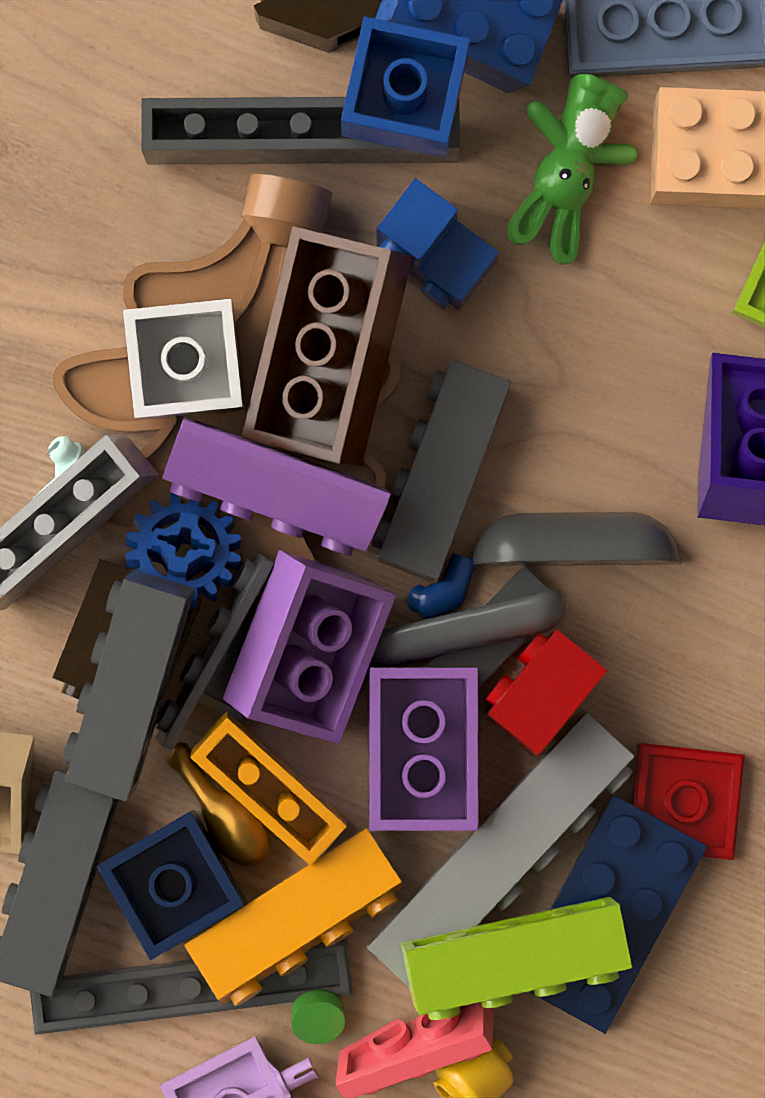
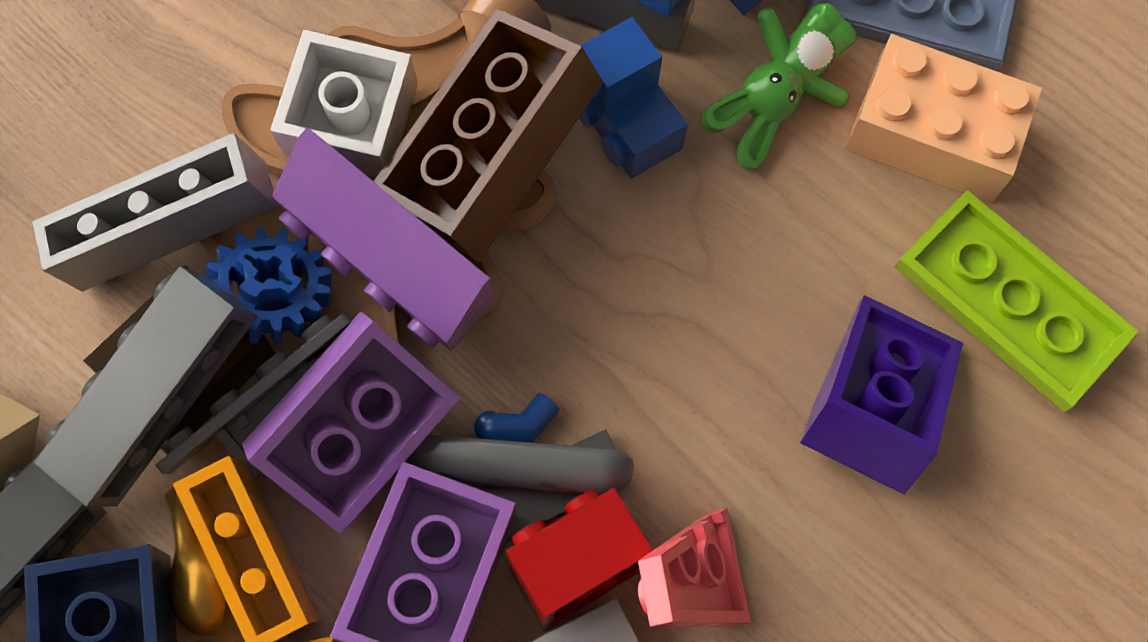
camera: 15 degrees right, 15 degrees down
(443, 470) = (557, 309): dark grey brick -> none
(576, 540) = (668, 426): dark grey brick -> none
(647, 670) = (695, 577): none -> coral wing

